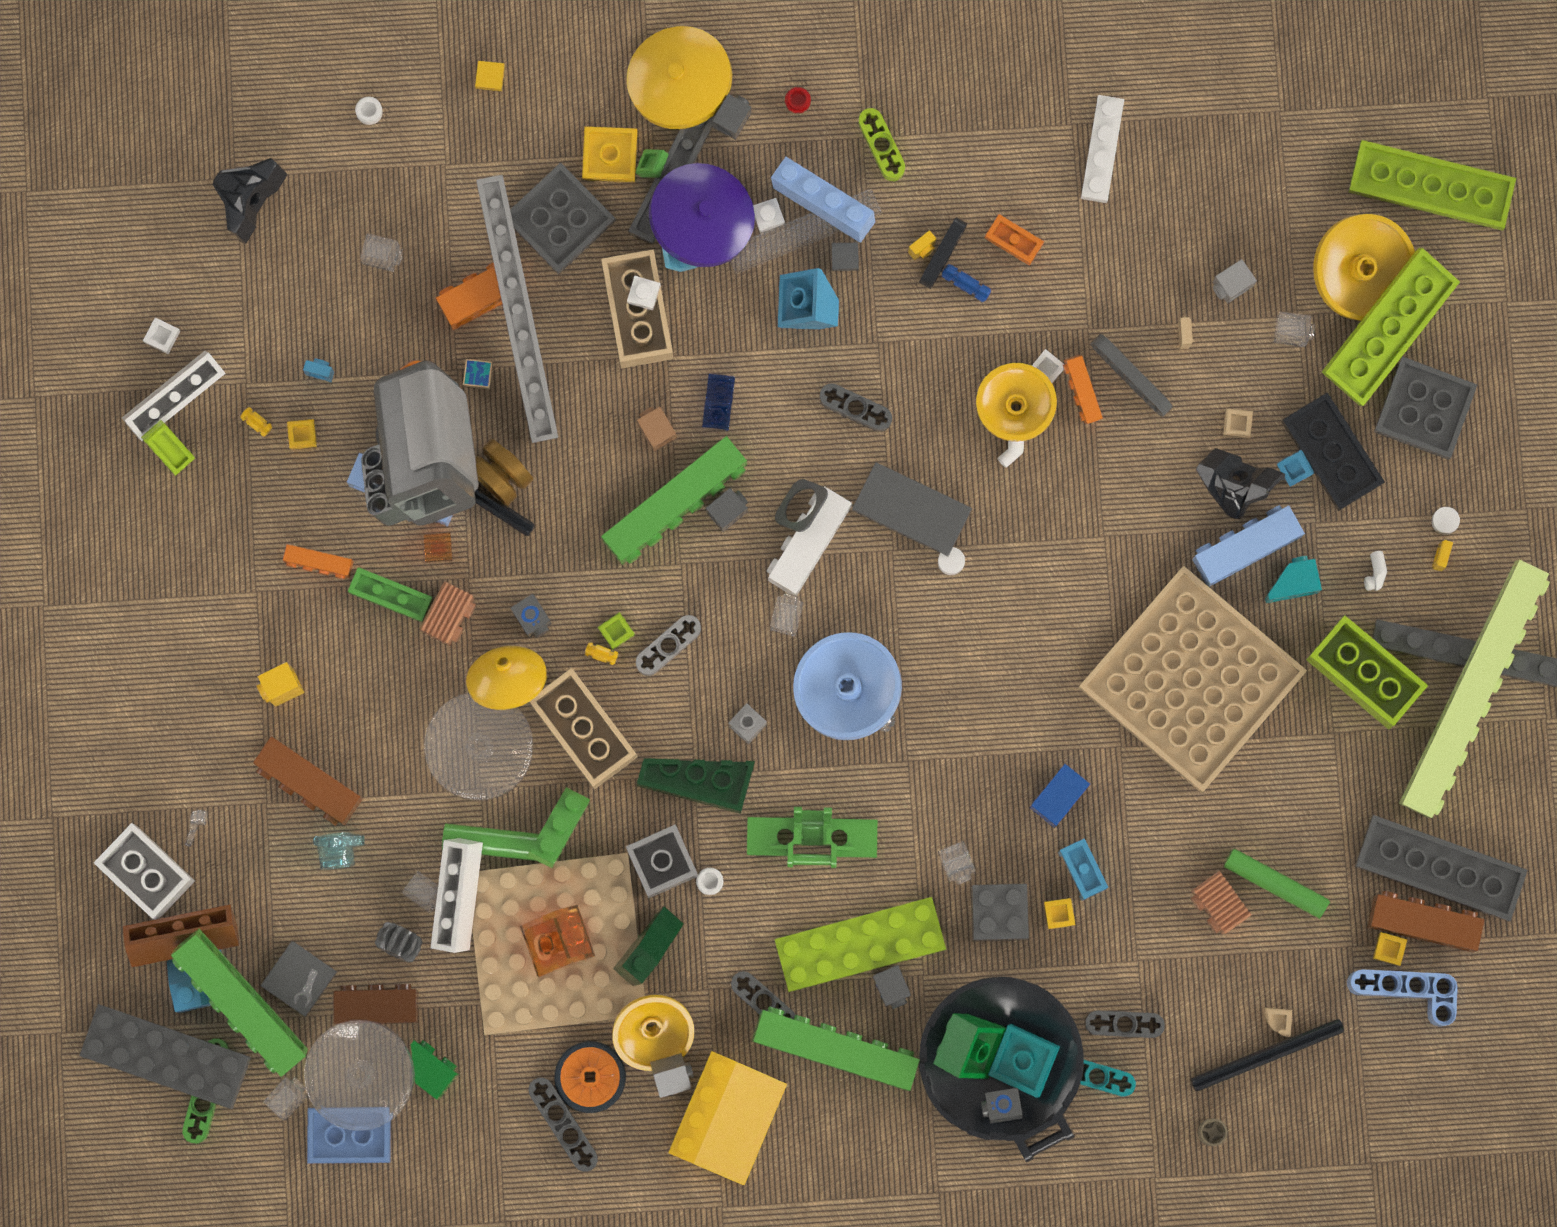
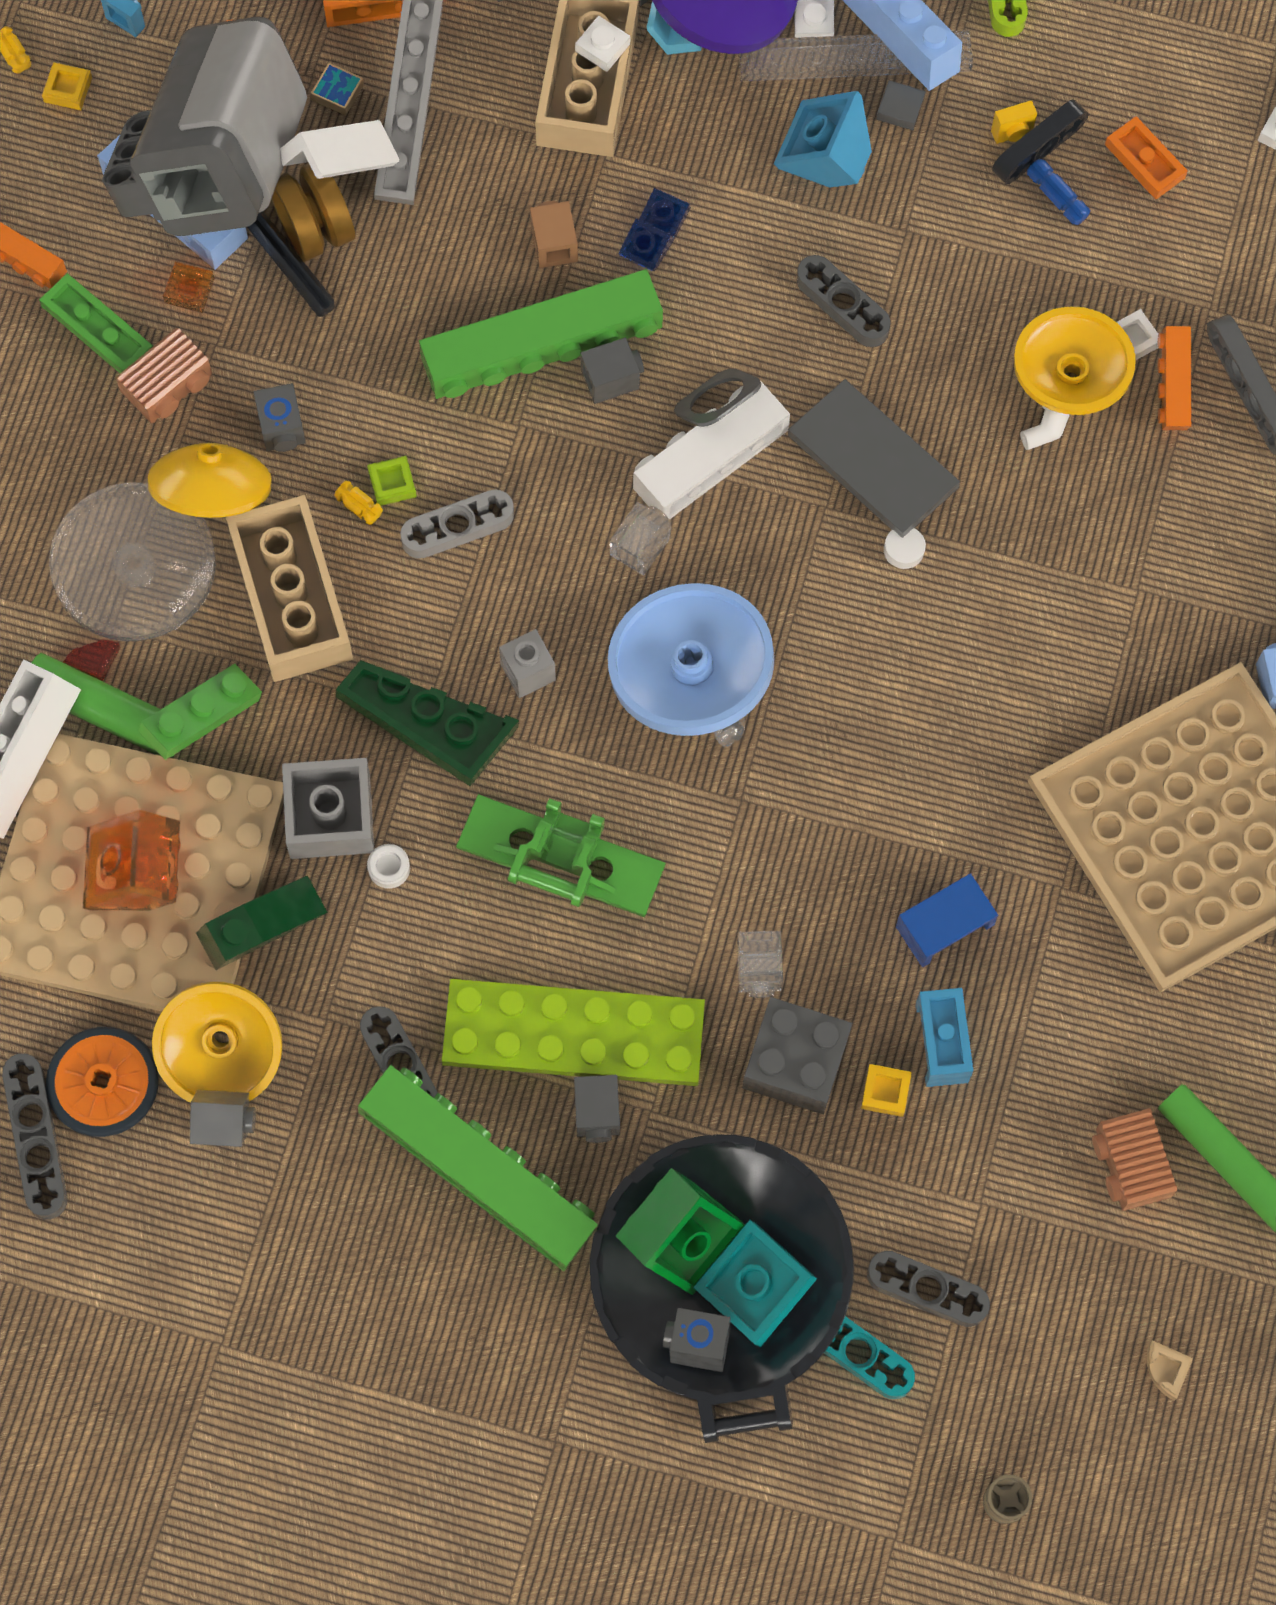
camera: 20 degrees right, 10 degrees down
(476, 814) = (94, 658): none -> clear red tile
(507, 428) = (341, 149): none -> white panel
(727, 1118) = (278, 1212): yellow slope -> none
(1267, 1055) = (1132, 1413): black axle -> none

